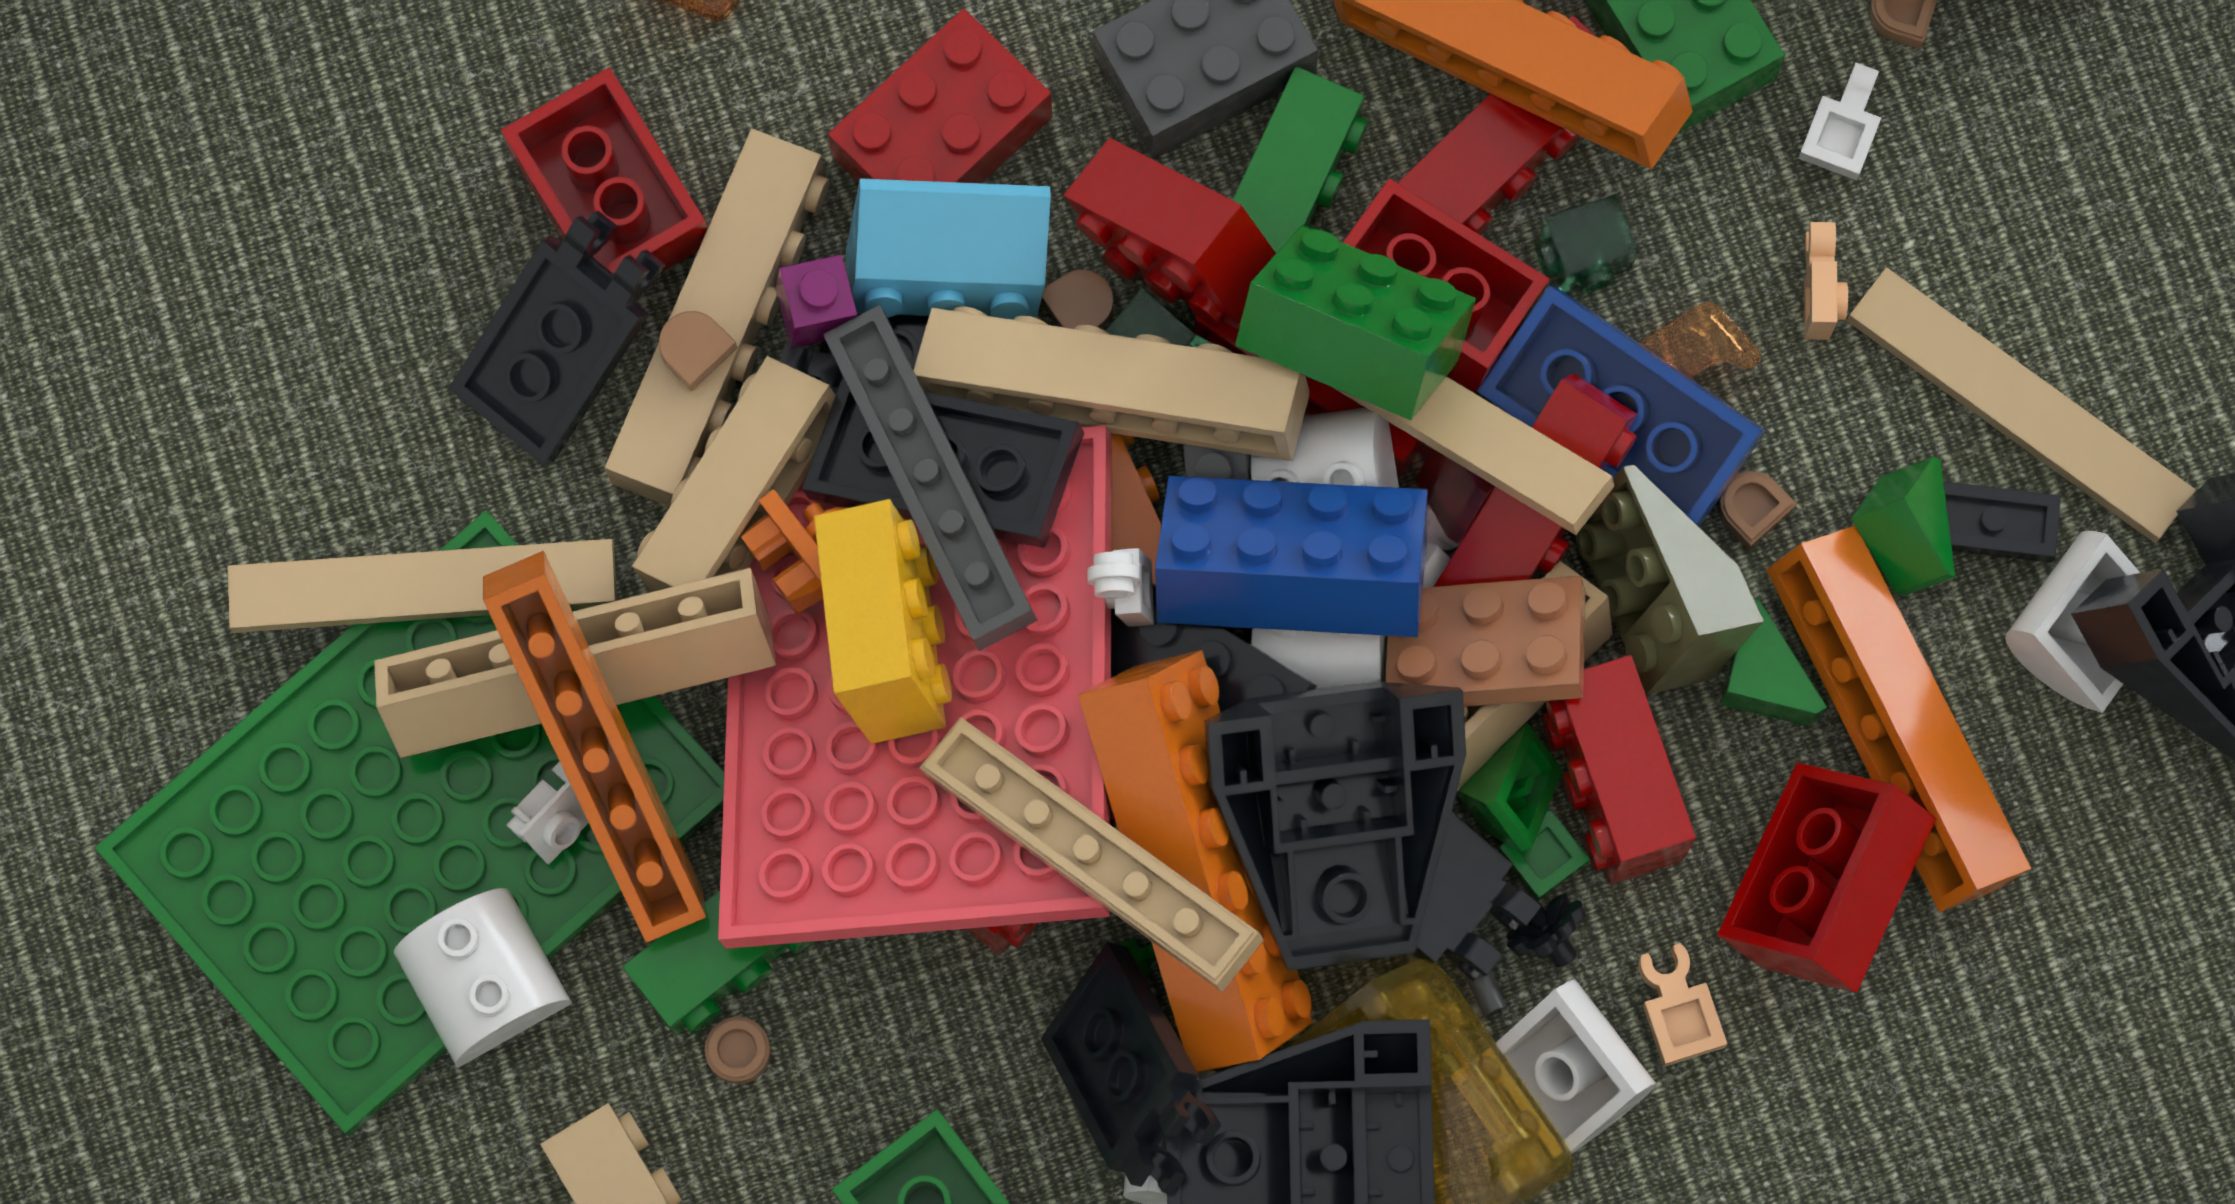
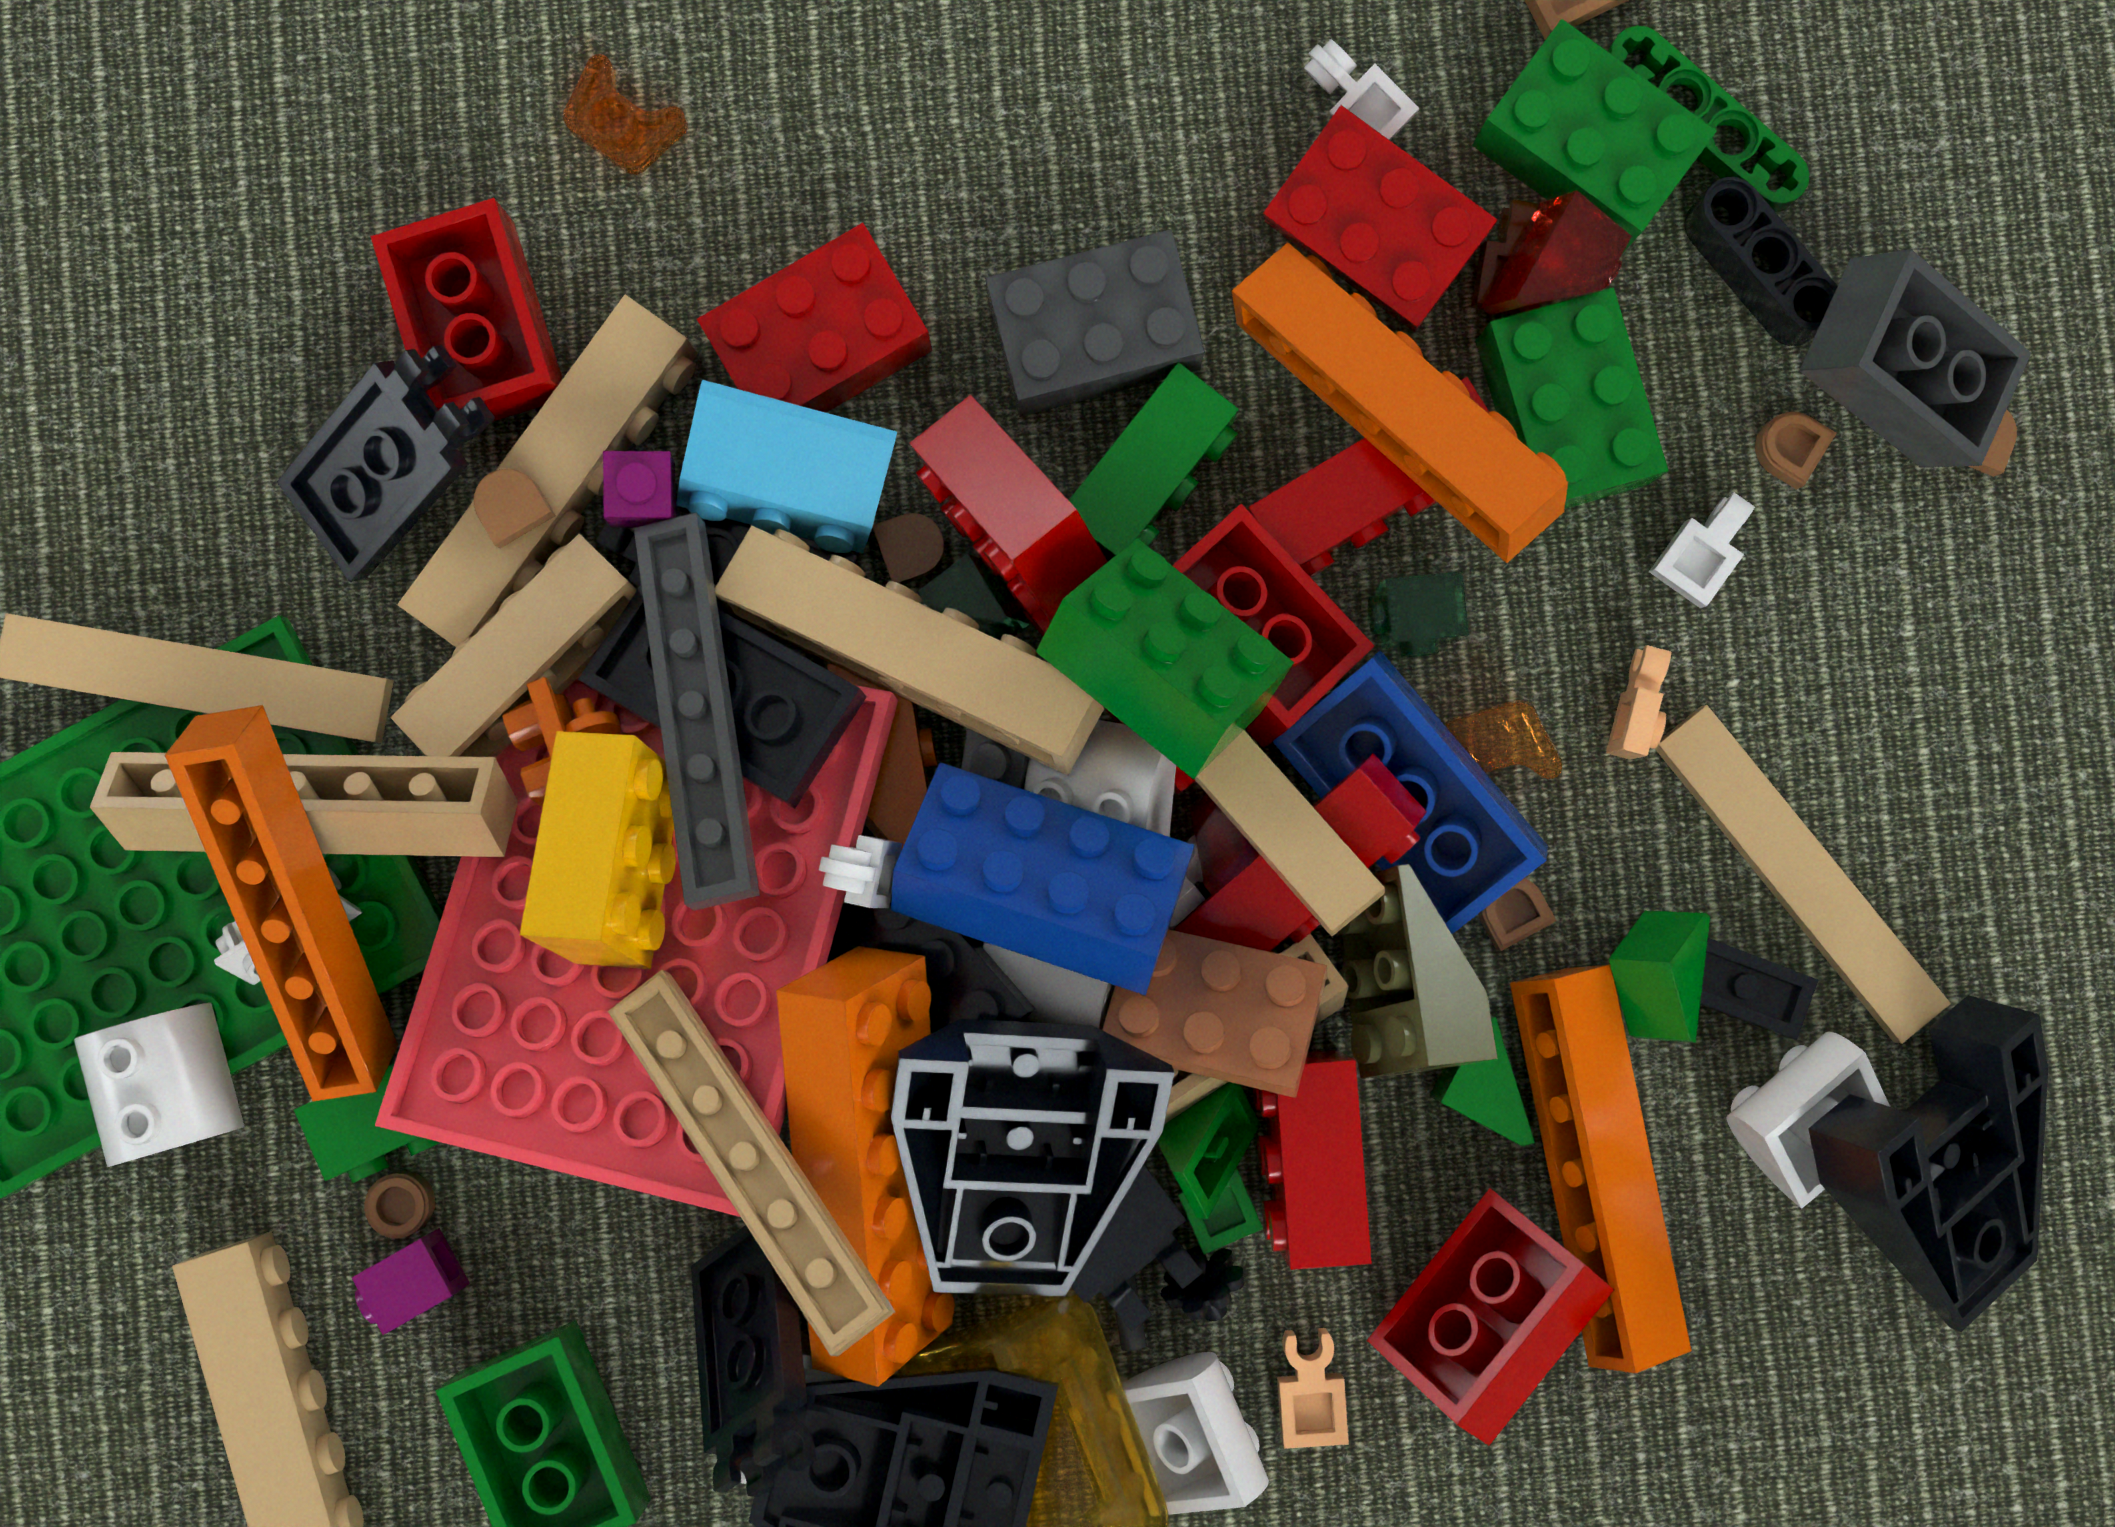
camera: 10 degrees right, 10 degrees up
(769, 1115) = (409, 1282): none -> magenta brick

